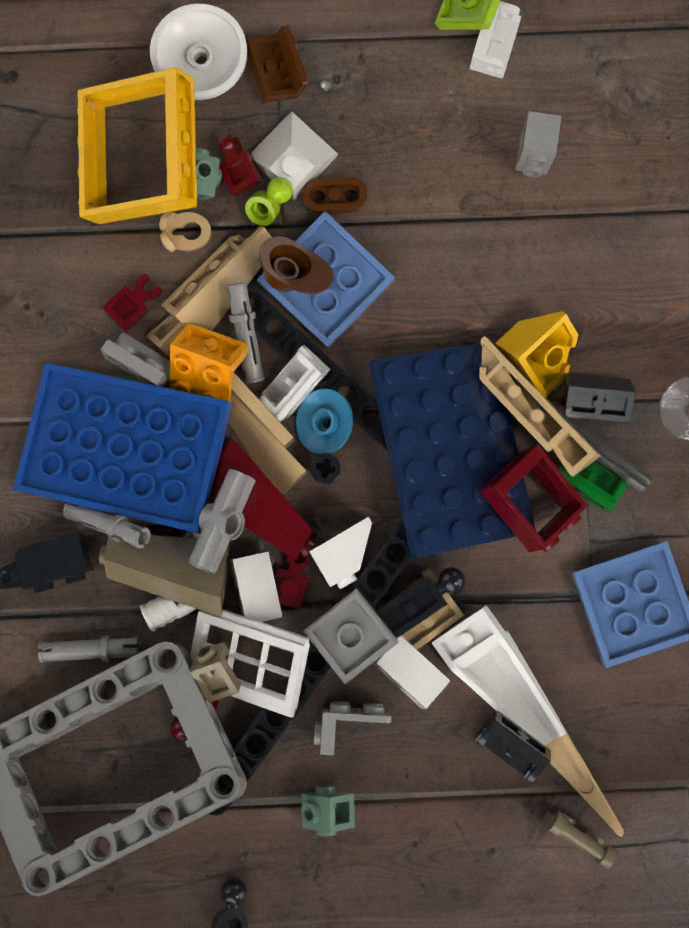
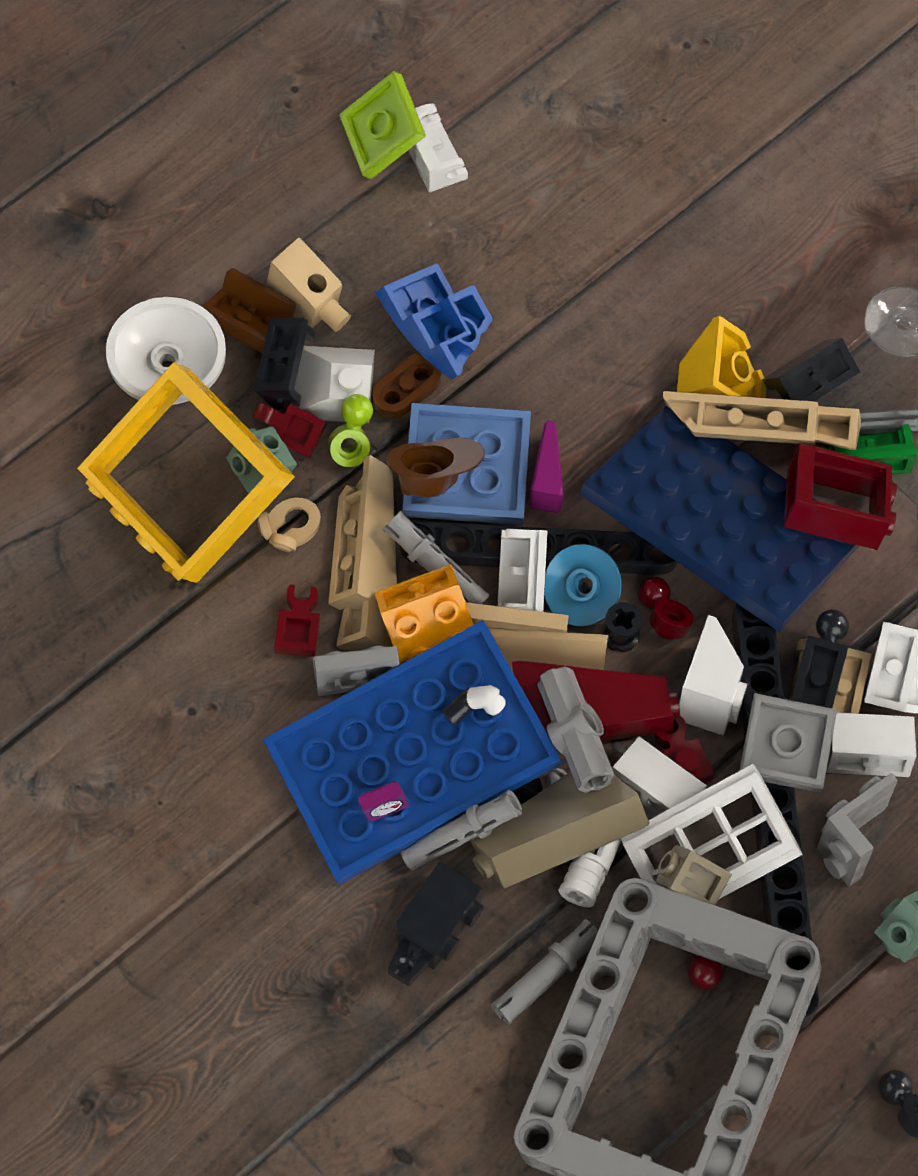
camera: 45 degrees left, 20 degrees down
(70, 468) = (383, 801): none -> magenta tile
(176, 450) = (474, 698): none -> arm
(265, 115) = (282, 360): none -> black hinge
(324, 68) = (310, 284): none -> tan torso
(367, 329) = (547, 482): none -> magenta slope
(368, 462) = (668, 616): none -> dark red plate
(391, 164) = (435, 319): none -> blue slope
(538, 143) = (557, 200): light grey brick -> none

